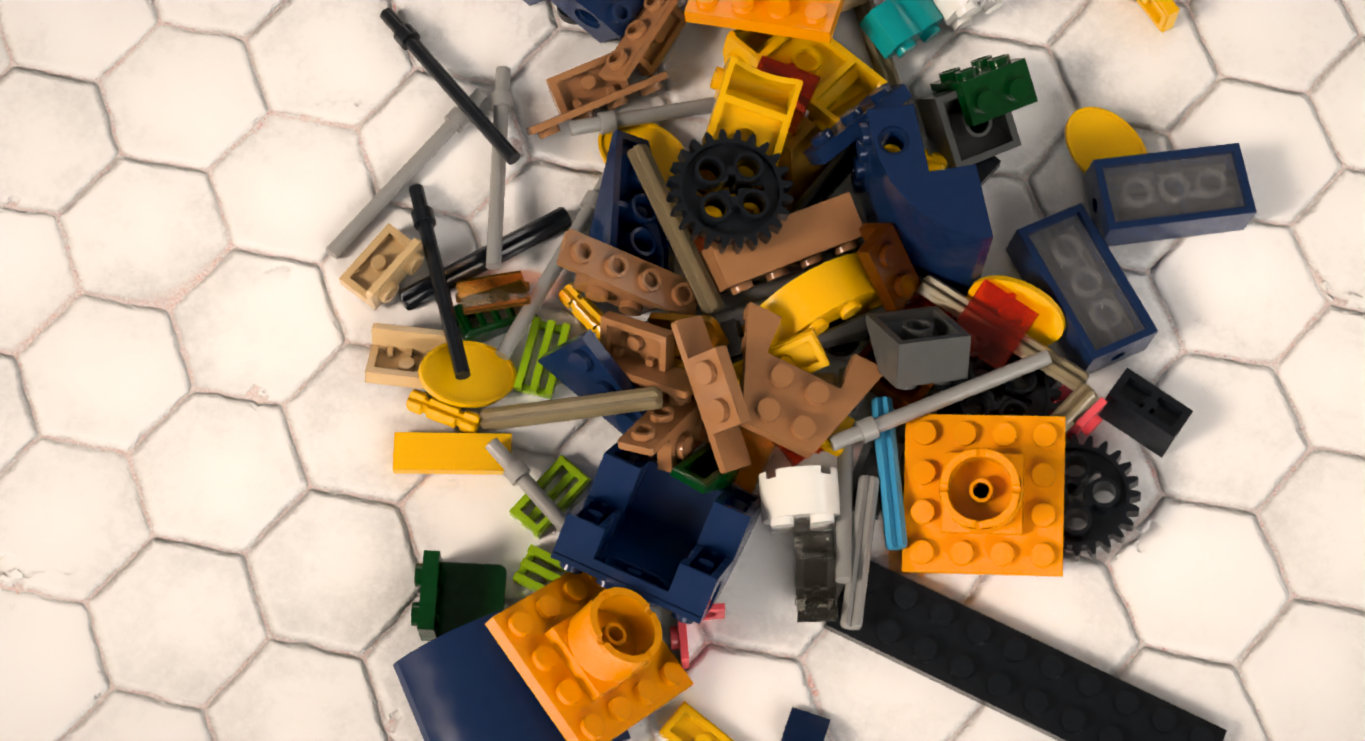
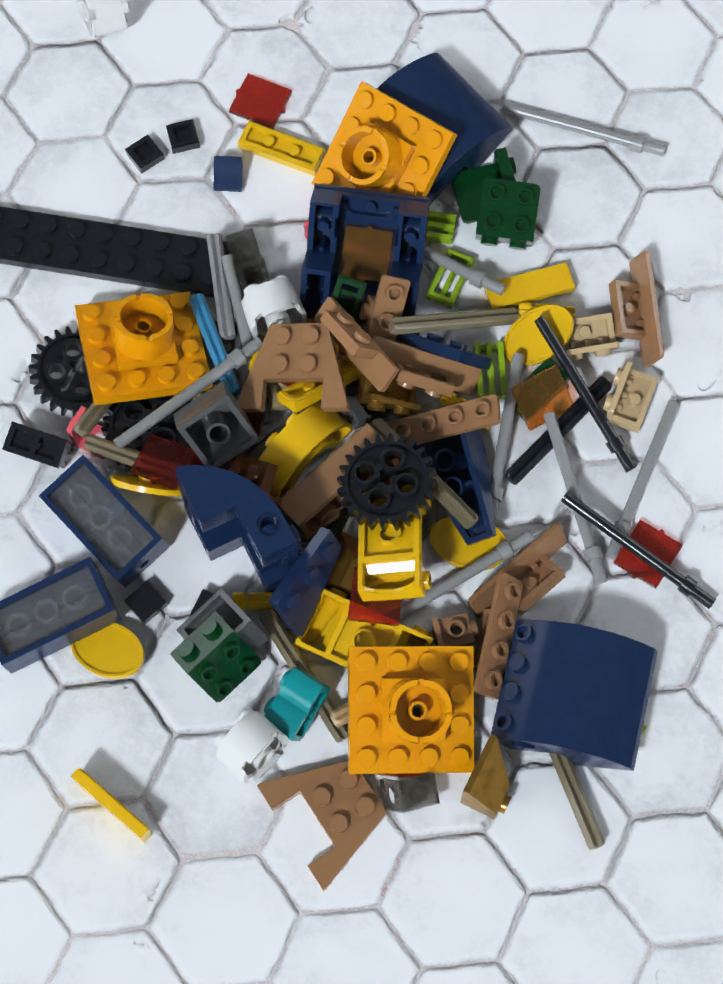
camera: 165 degrees right, 0 degrees up
(231, 617) = (636, 143): none -> light grey bar
(327, 378) = (636, 309): none -> medium nougat bracket
(425, 95) = (655, 542): none -> clear red piece
(448, 537) = (507, 213): none -> dark green bracket
(654, 537) = (365, 253): none -> clear orange piece
(695, 54) = (444, 637): none -> medium nougat brick
(1049, 193) = (145, 602): none -> black tile

